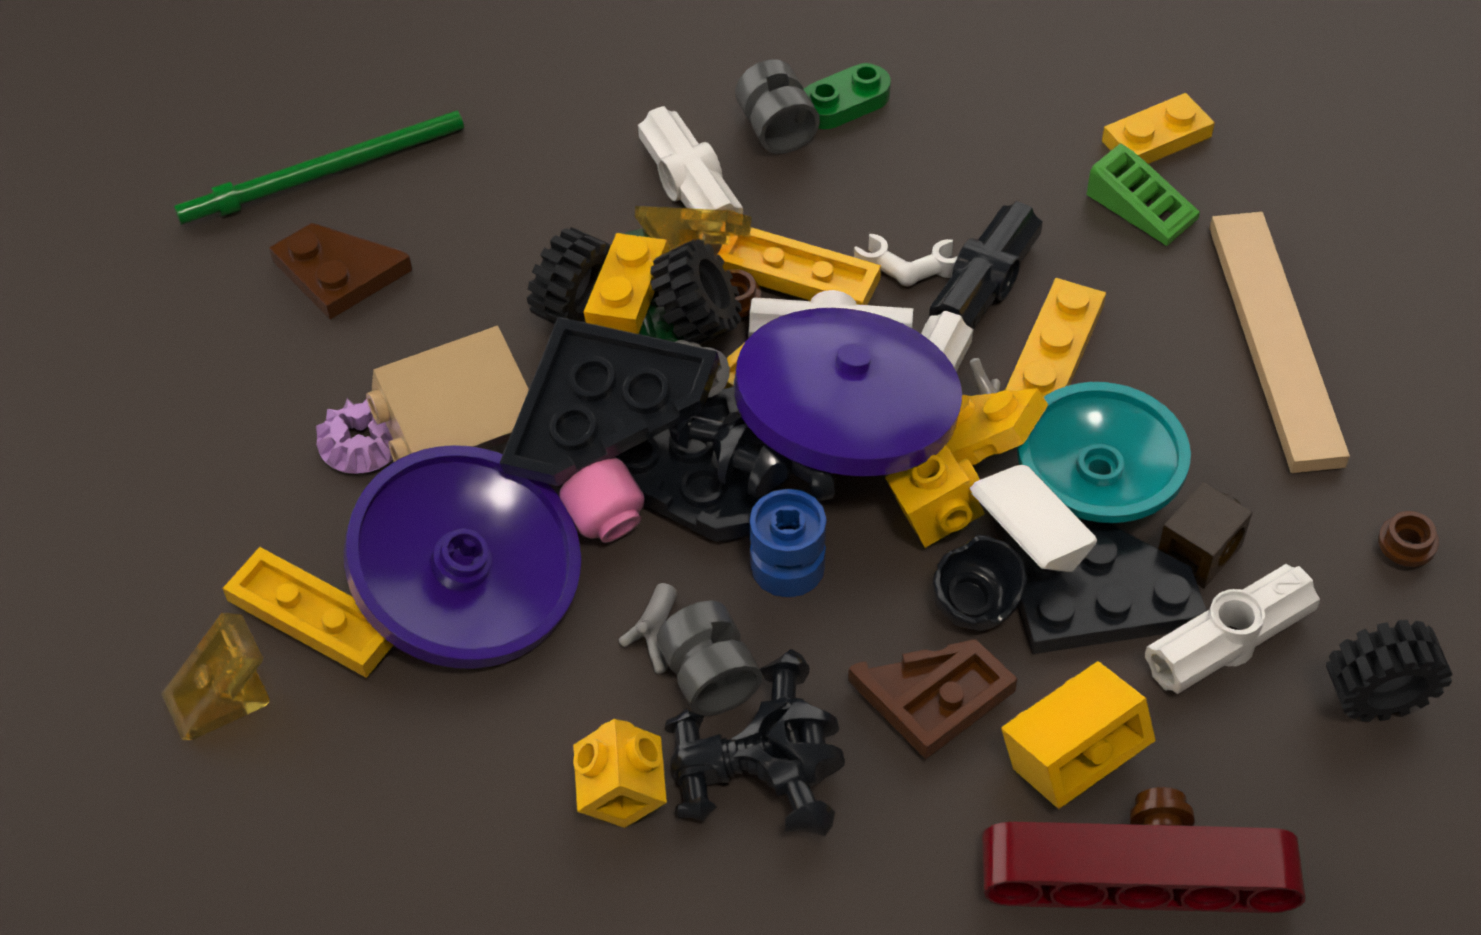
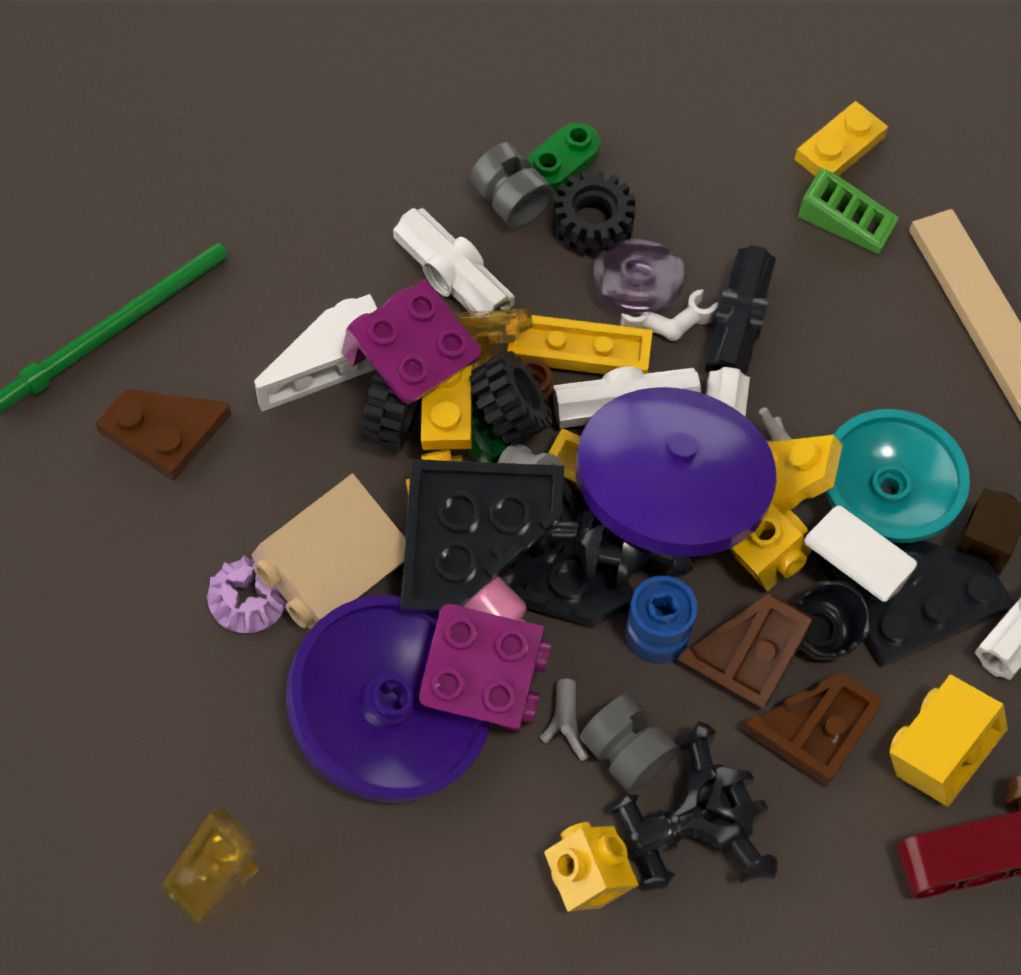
camera: 20 degrees left, 10 degrees up
(307, 611) = (265, 778): yellow plate -> none
(517, 225) = (314, 357): none -> white slope
(575, 544) = (484, 667): none -> magenta bracket
(603, 213) = (411, 342): none -> magenta bracket
(858, 130) = (596, 193): none -> black tyre
(882, 593) = (752, 649): none -> reddish brown wing
(886, 215) = (638, 276): none -> clear purple tile
(1058, 338) = (817, 374): yellow plate -> none

